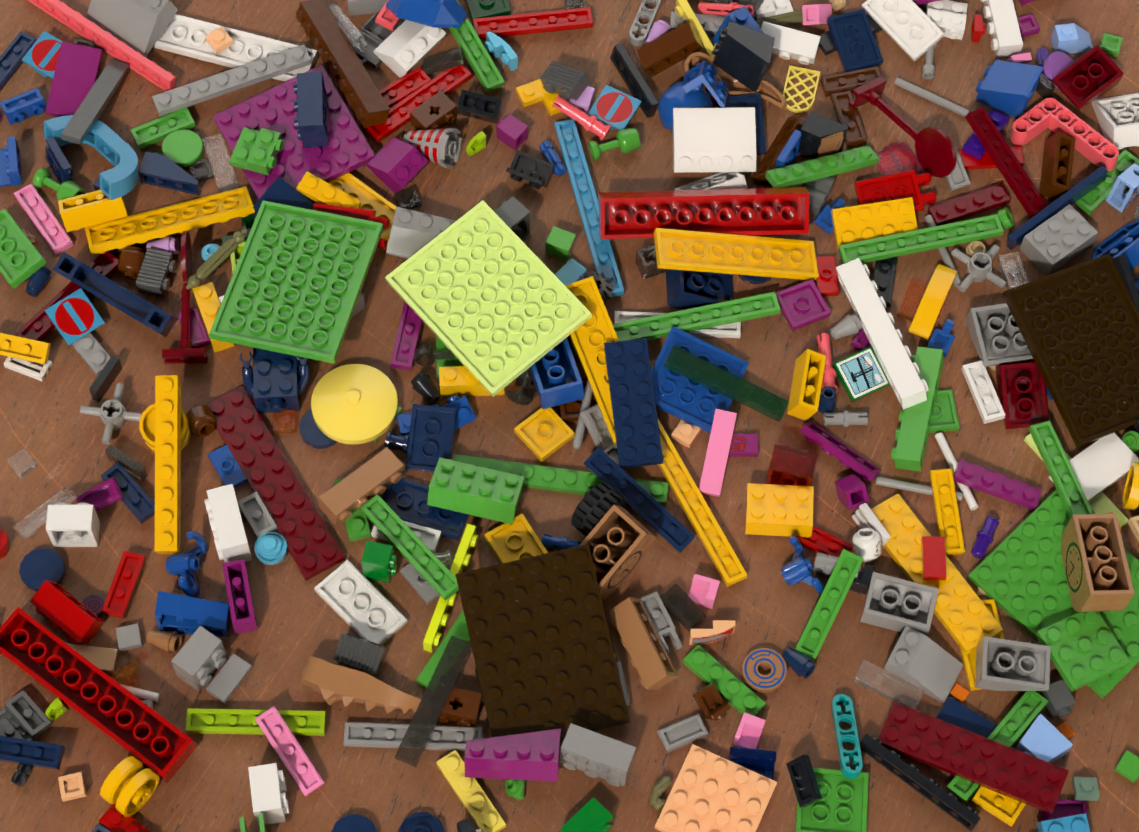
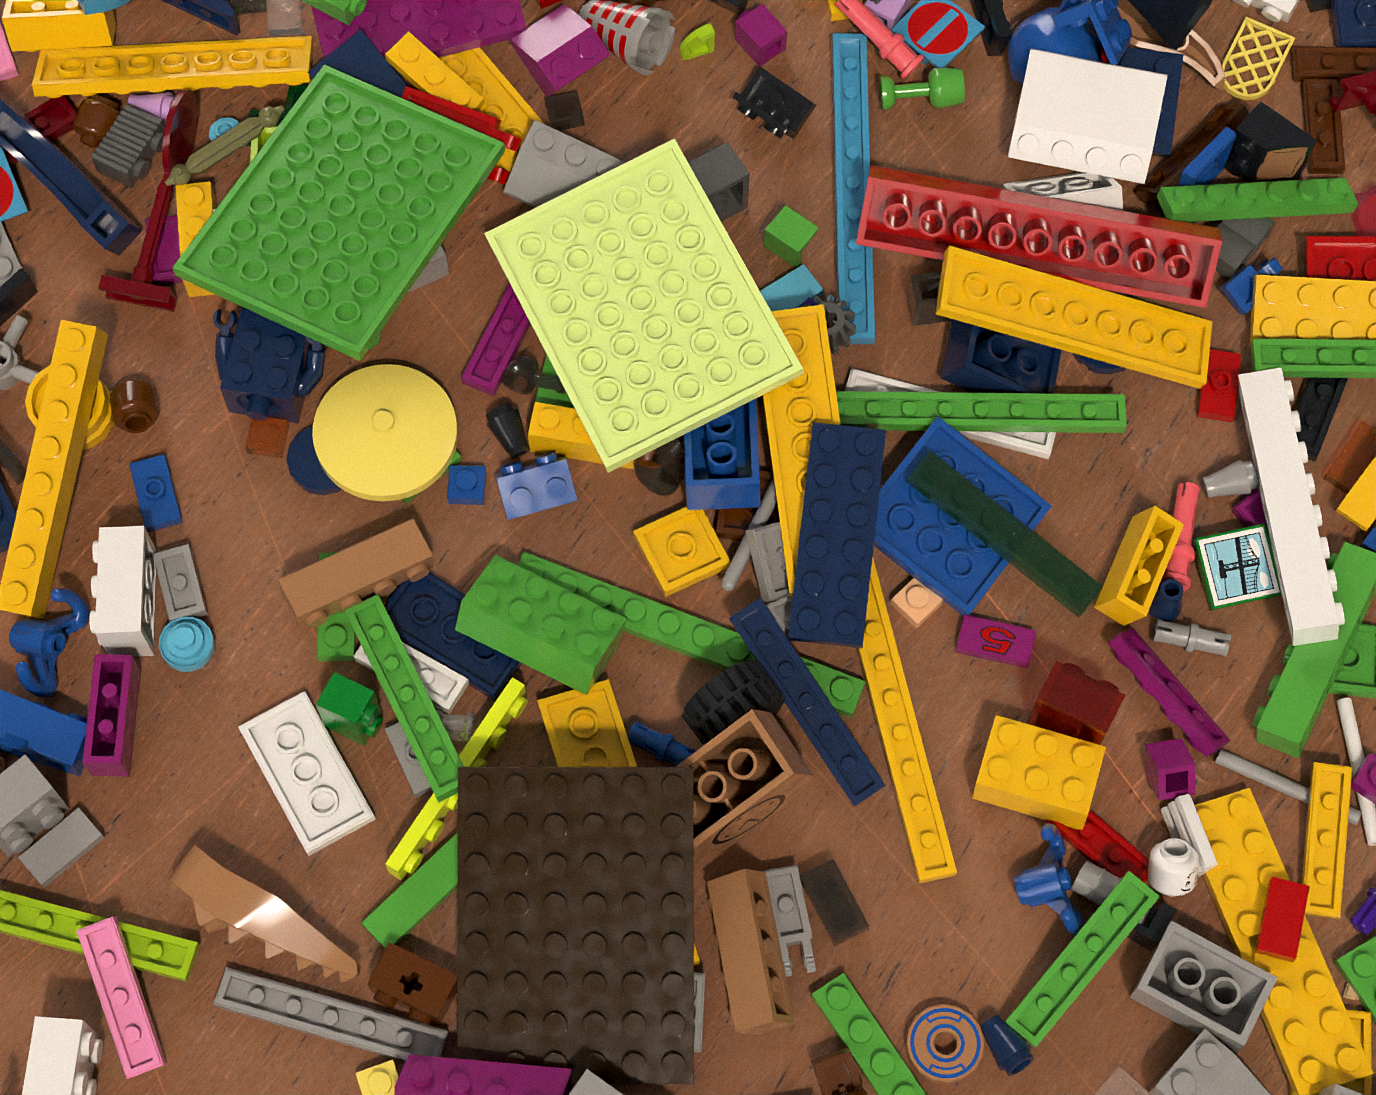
camera: 15 degrees right, 5 degrees up
(275, 483) = (224, 538): dark red plate -> none
(360, 654) = (279, 858): dark grey brick -> none
(397, 441) = (438, 511): dark blue bush -> none
(430, 436) = (491, 515): dark blue tile -> none
(433, 701) = (373, 972): clear smoke tile -> none
(553, 158) = (816, 91): blue axle -> none
(704, 591) = (876, 883): bright pink panel -> none
(717, 452) = (959, 649): bright pink tile -> none
(718, 631) = (884, 958): light nougat slope -> none
(802, 305) = (1167, 426): magenta plate -> none

